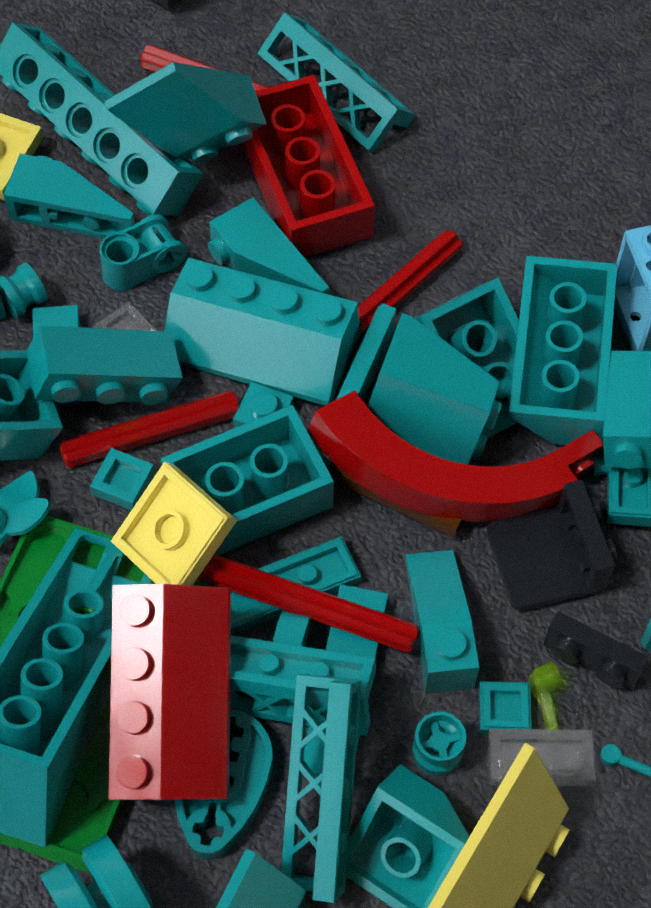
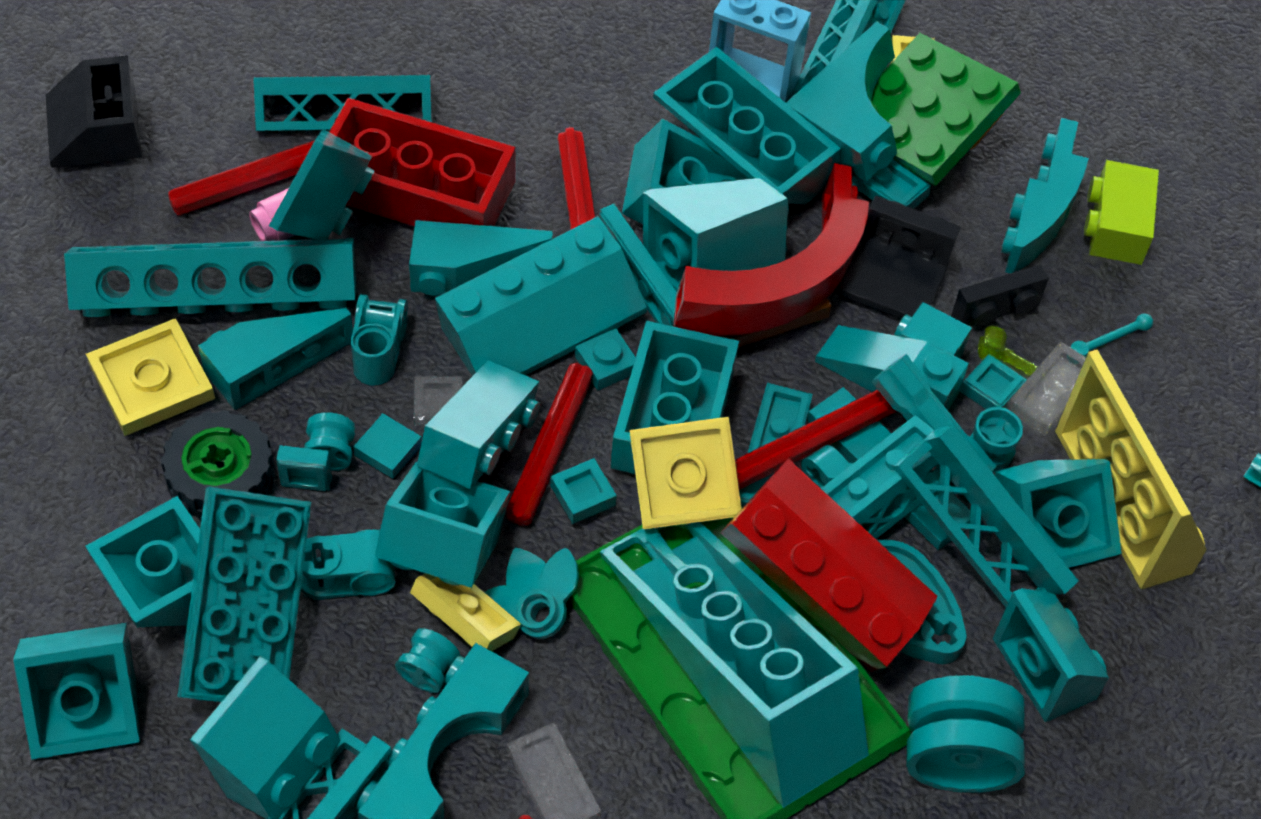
camera: 55 degrees left, 5 degrees down
(392, 719) = (911, 395): none -> teal axle
(497, 628) = (936, 328): none -> teal brick

